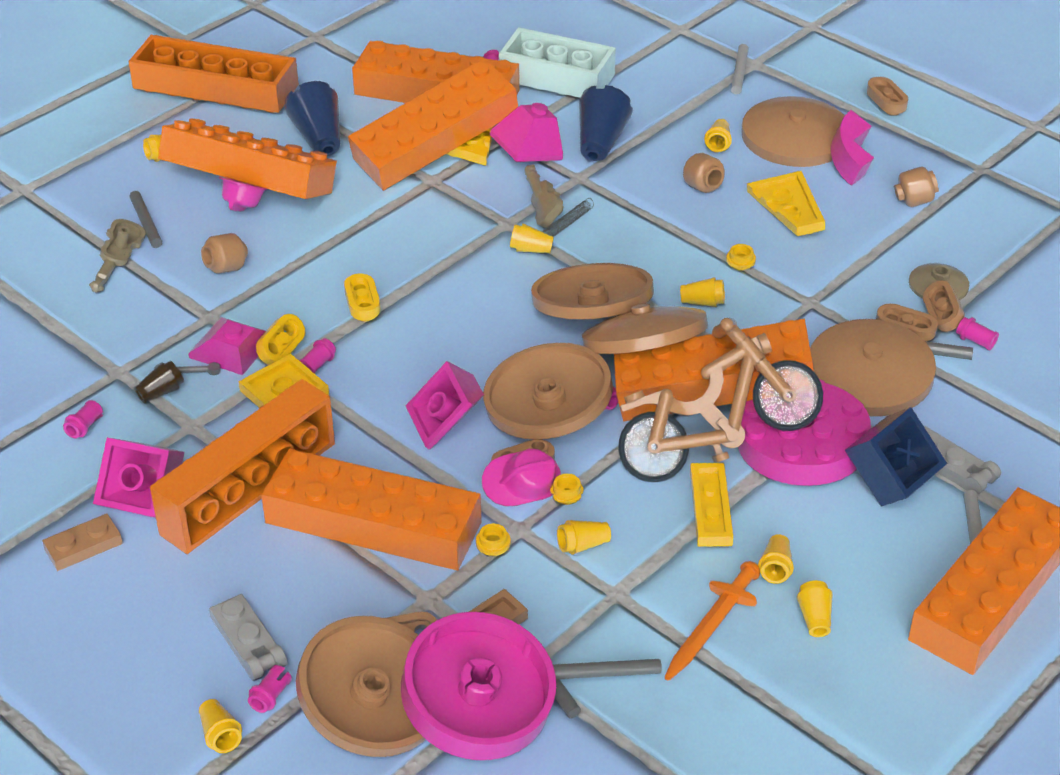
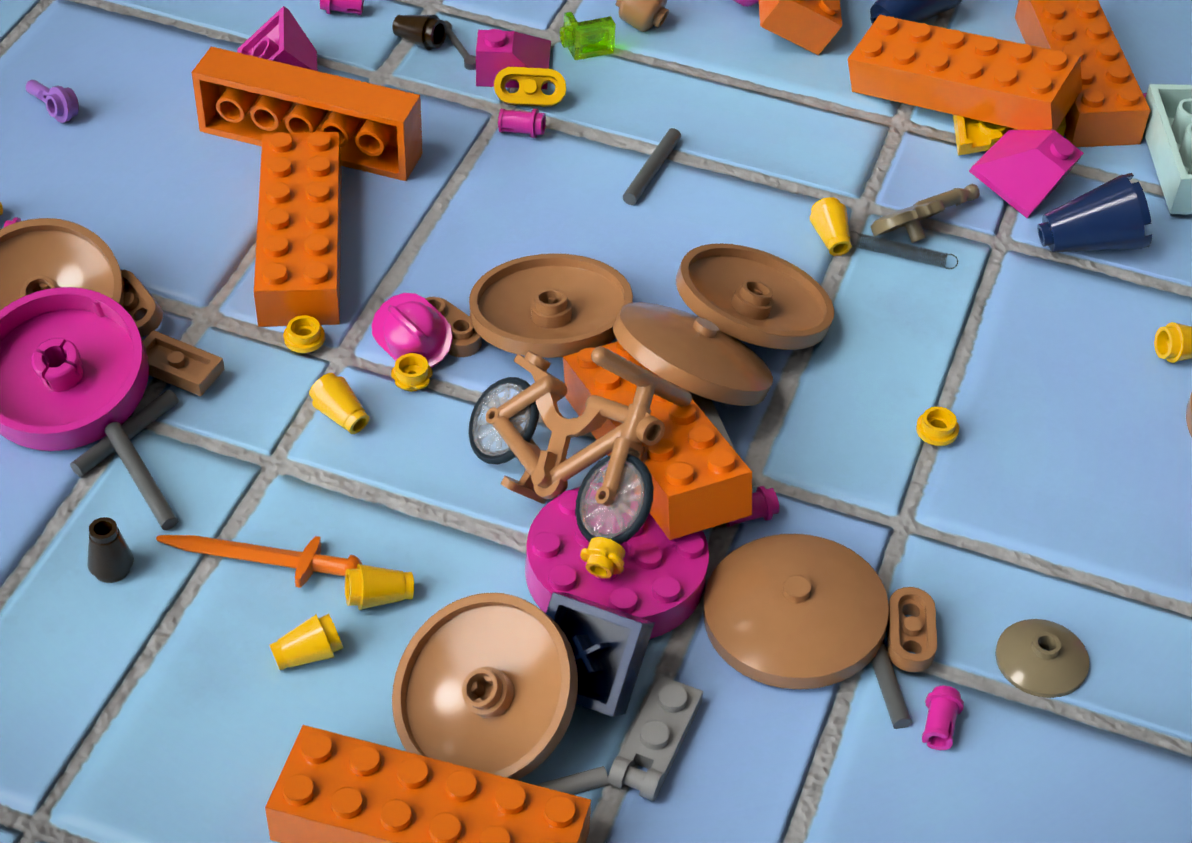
camera: 65 degrees right, 5 degrees up
(82, 542) = (174, 55): medium nougat plate -> none
(96, 633) = (59, 101): none -> medium lavender plate
(239, 295) = (588, 37): none -> clear neon green bracket
(247, 636) = (101, 197): light grey plate -> none
(275, 378) = (460, 113): yellow plate -> none
(362, 297) = (639, 124): yellow plate -> none
(408, 307) = (651, 166): none -> dark grey bar
(443, 402) = (497, 236): dark pink slope -> none
(686, 702) = (108, 552): none -> dark brown cone
(703, 172) = (1083, 344): medium nougat head -> none
(703, 292) = (838, 409): yellow cone -> none
(711, 504) = (443, 504): yellow plate -> none
(790, 202) = (1093, 450): yellow wing -> none
(828, 420) = (603, 557): none -> yellow plate
(910, 513) = (486, 686): none -> medium nougat dish
(943, 305) = (972, 662): medium nougat plate -> none

